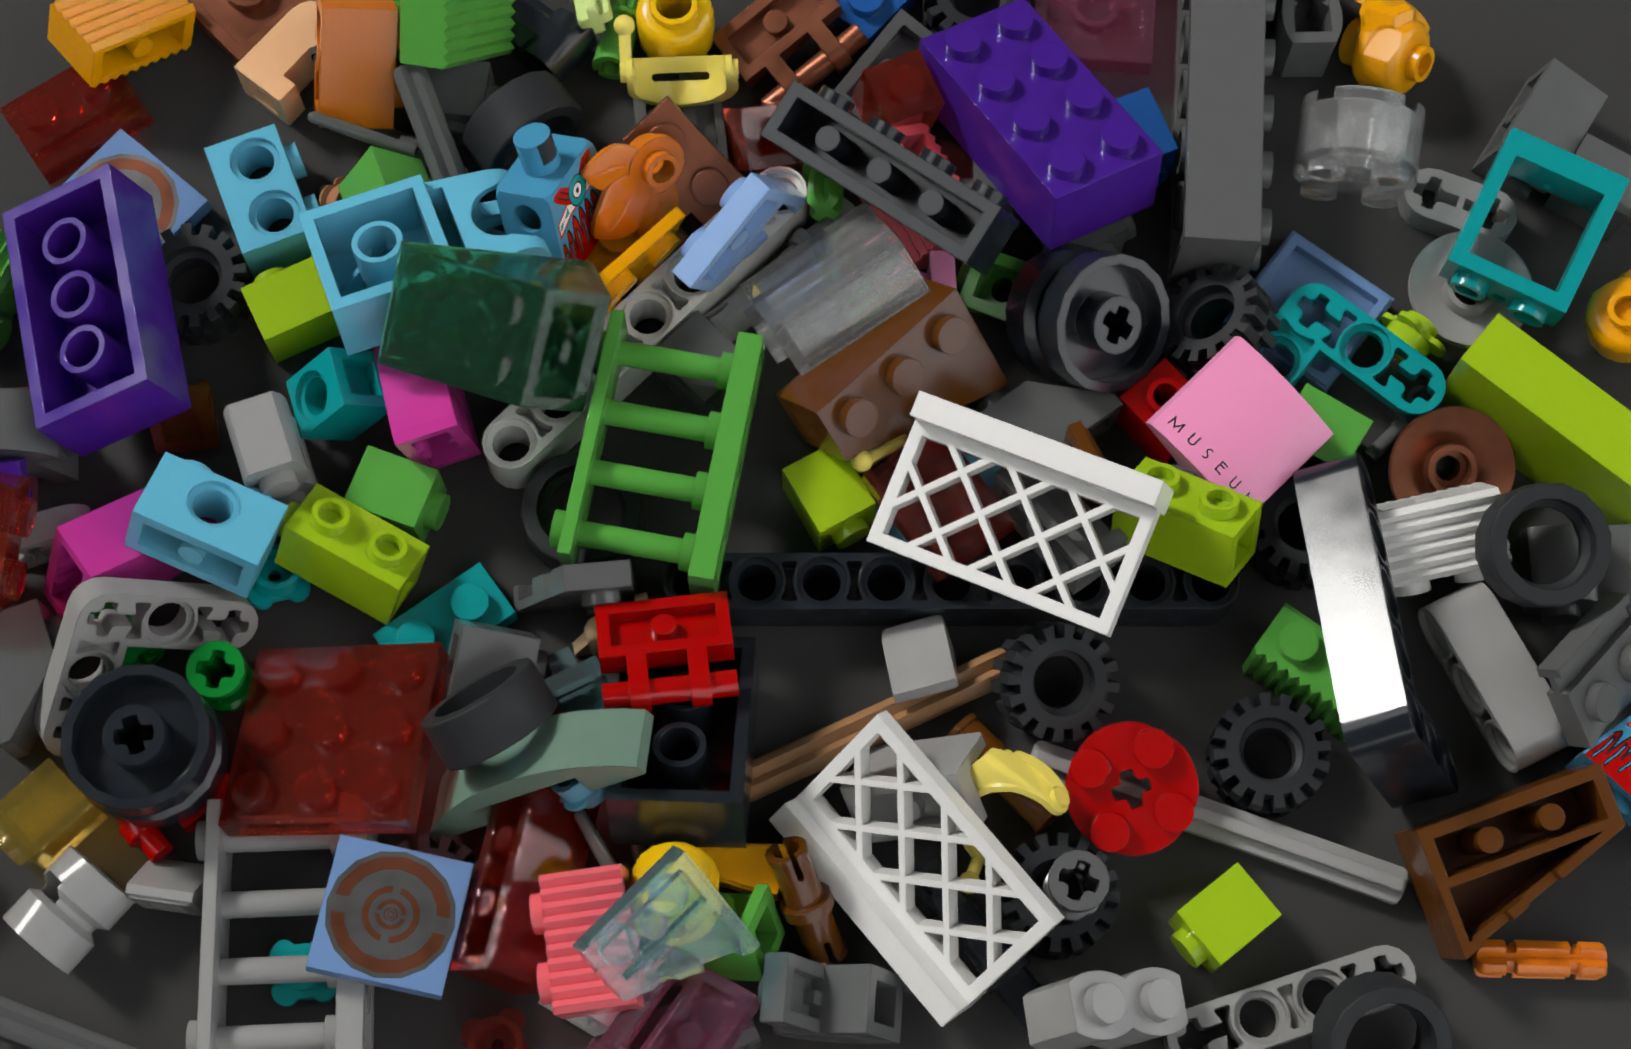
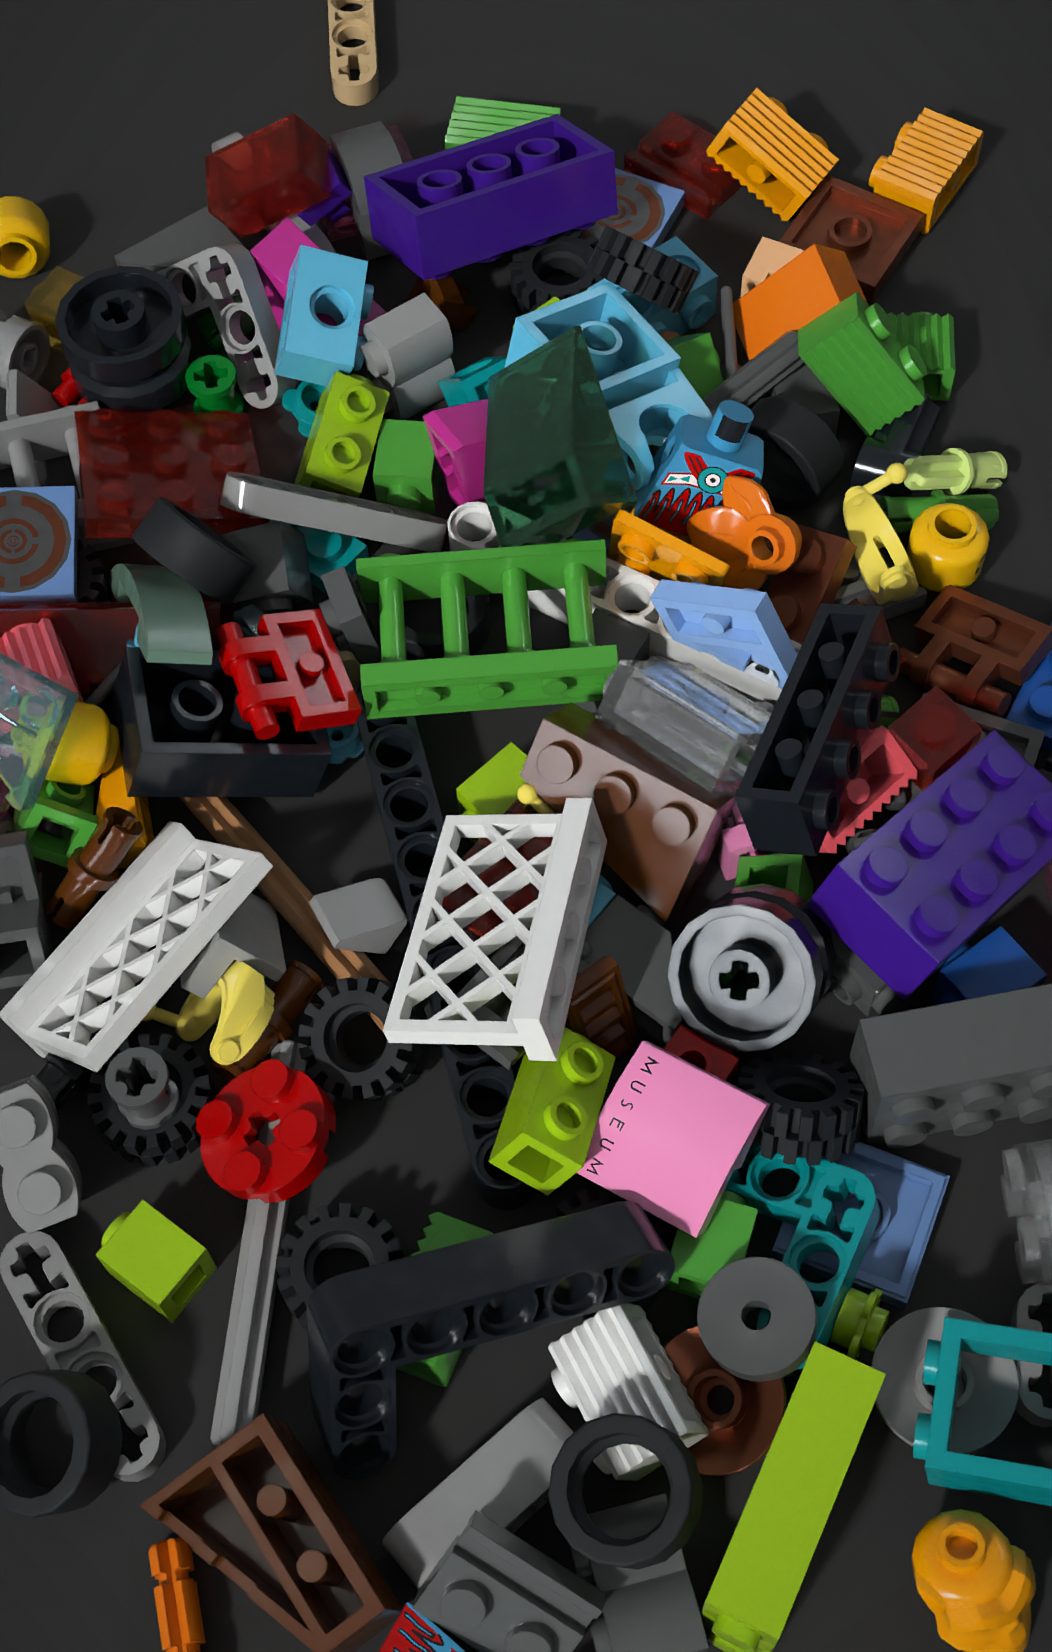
camera: 80 degrees right, 10 degrees down
(277, 183) = (642, 270): none -> black tyre
(455, 576) = (333, 512): none -> light grey beam
(1434, 387) = (764, 1352): none -> dark grey piece

